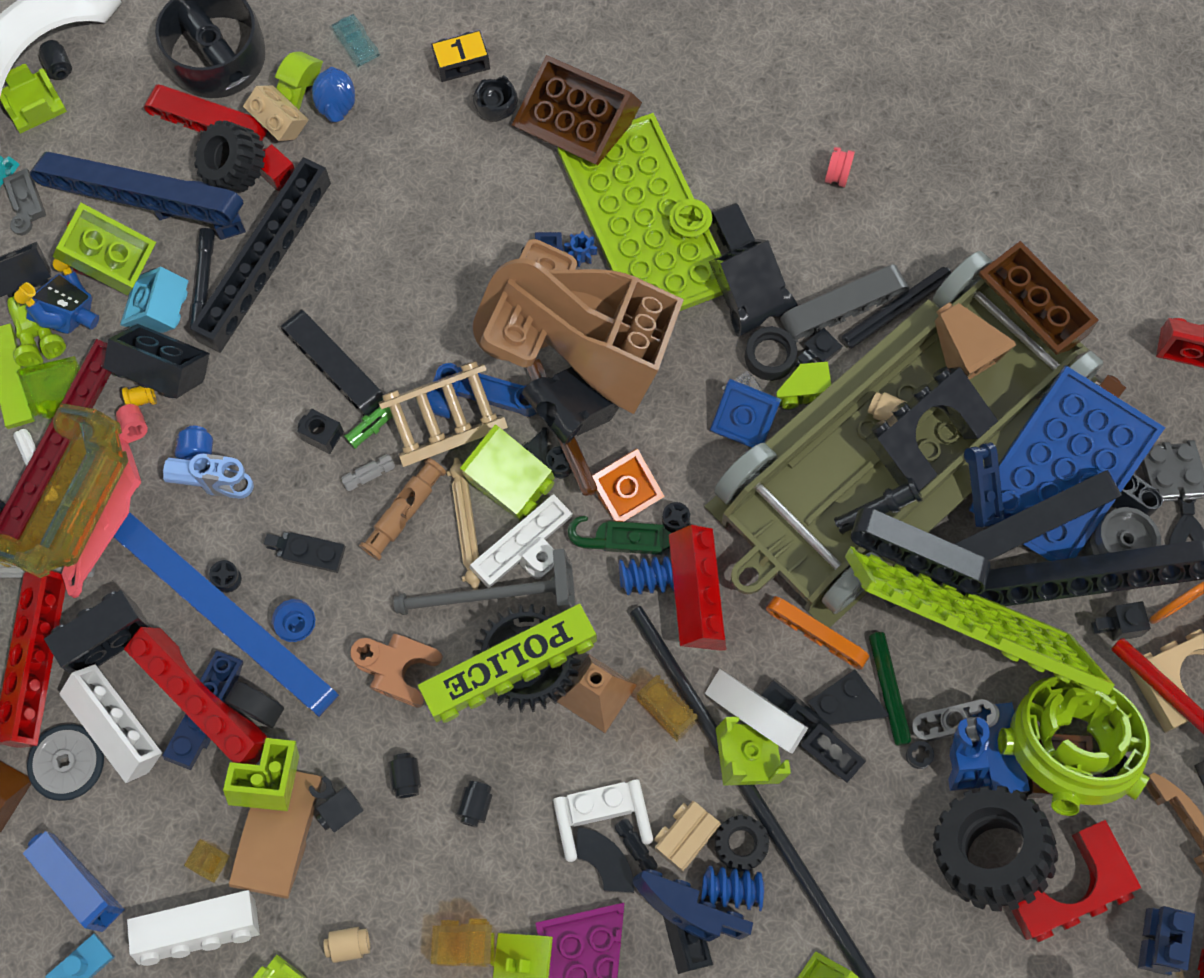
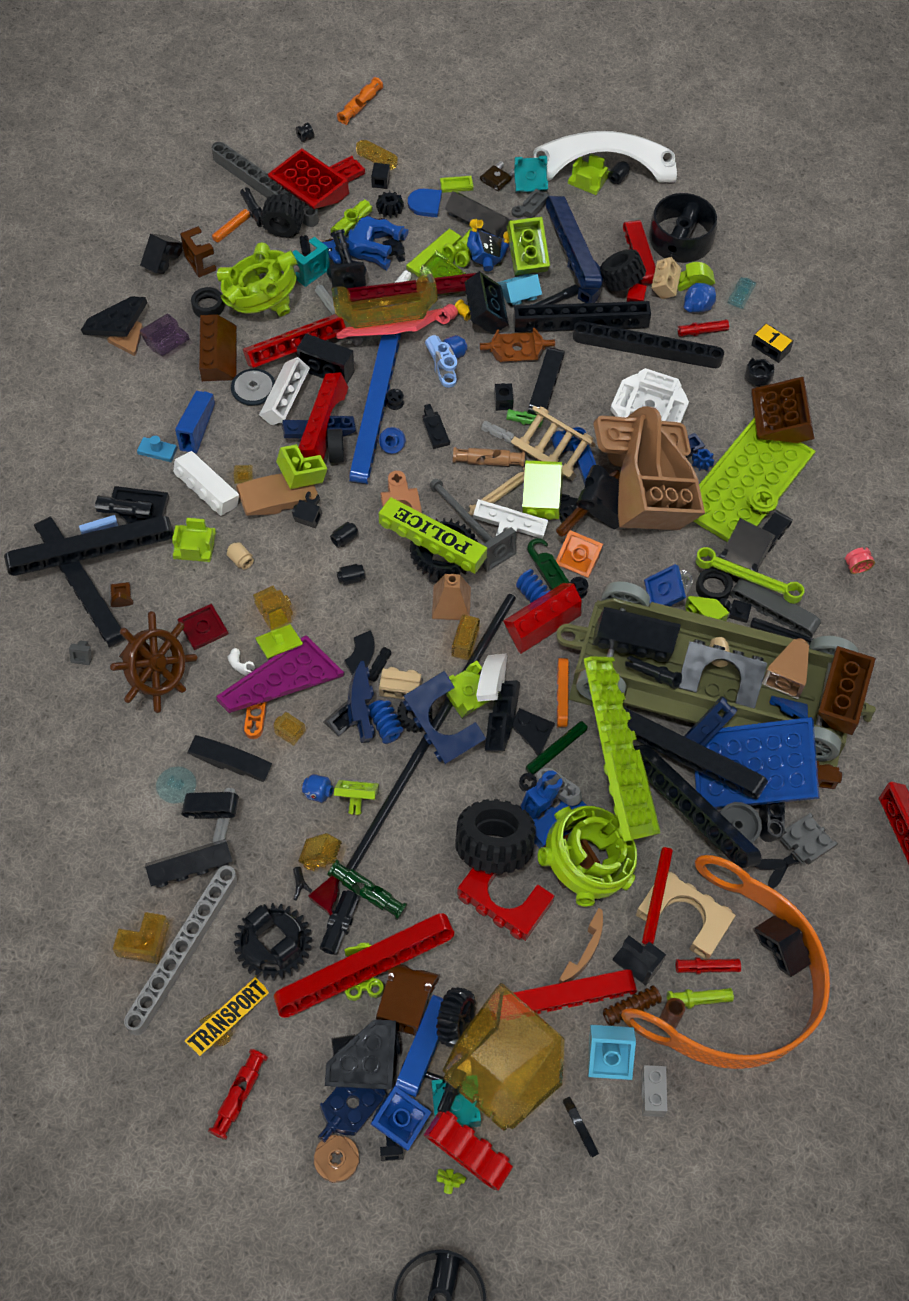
camera: 55 degrees right, 10 degrees down
(254, 343) = (531, 344): none -> dark orange plate
(356, 213) = (648, 344): none -> black beam
(376, 127) = (707, 327): none -> red pin
(445, 240) = (651, 390): none -> white piece
(600, 805) = (389, 634): white plate -> none
(791, 304) = (749, 575): none -> lime piece
(818, 497) = (635, 634): none -> black slope
(819, 827) = (420, 702): none -> dark blue arch
(920, 551) = (641, 703): beam -> none
(1014, 375) = (790, 707): none -> blue tile
(1123, 621) = (685, 852): black brick -> none
(1172, 941) = (502, 959): dark blue hips -> none

